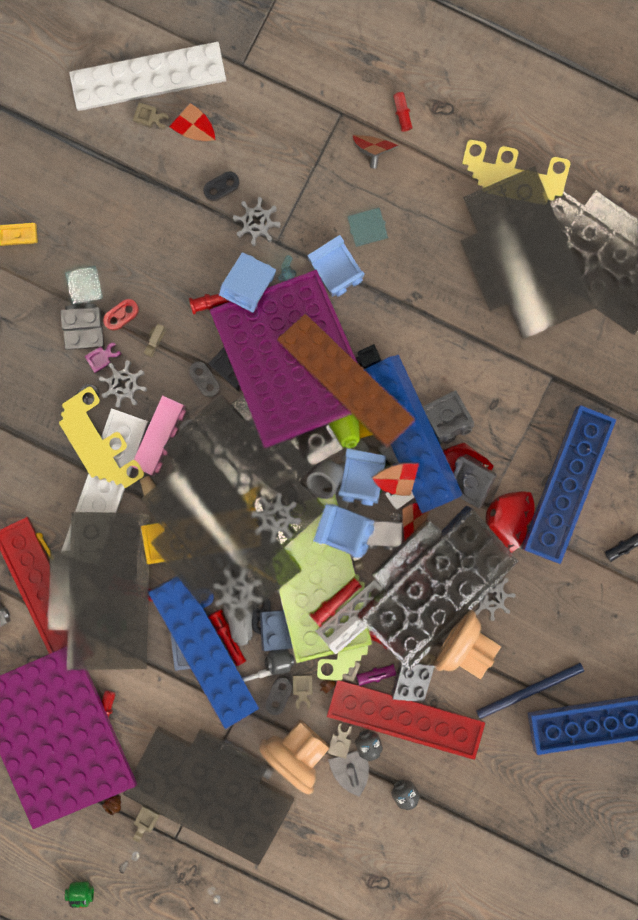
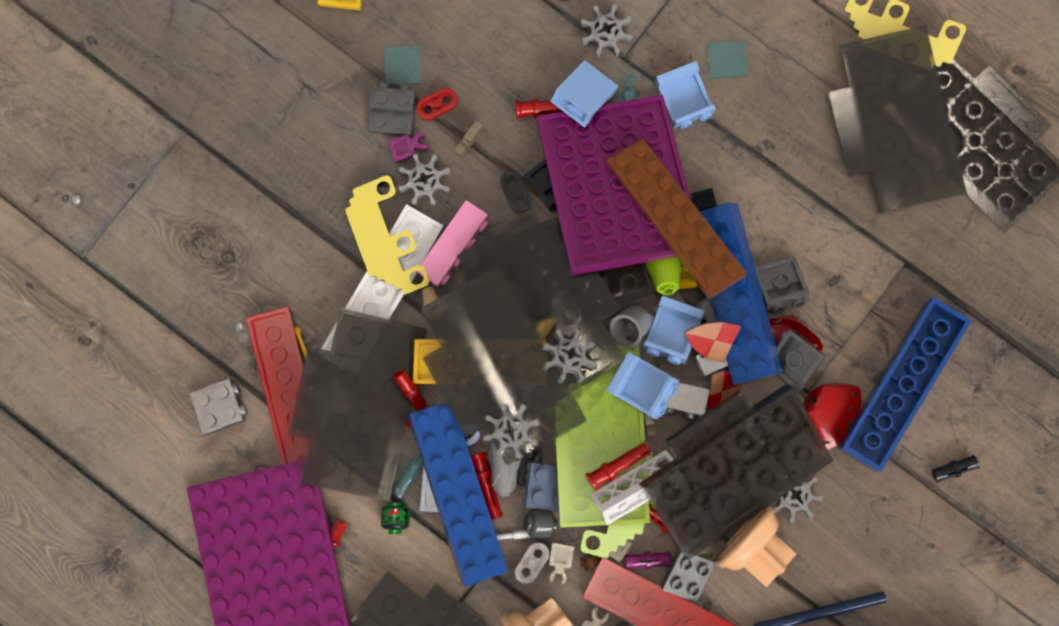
camera: 15 degrees right, 5 degrees down
(145, 570) = (409, 389): none -> red axle
(155, 679) = (395, 517): none -> head
(159, 643) = (408, 476): none -> clear light blue pin

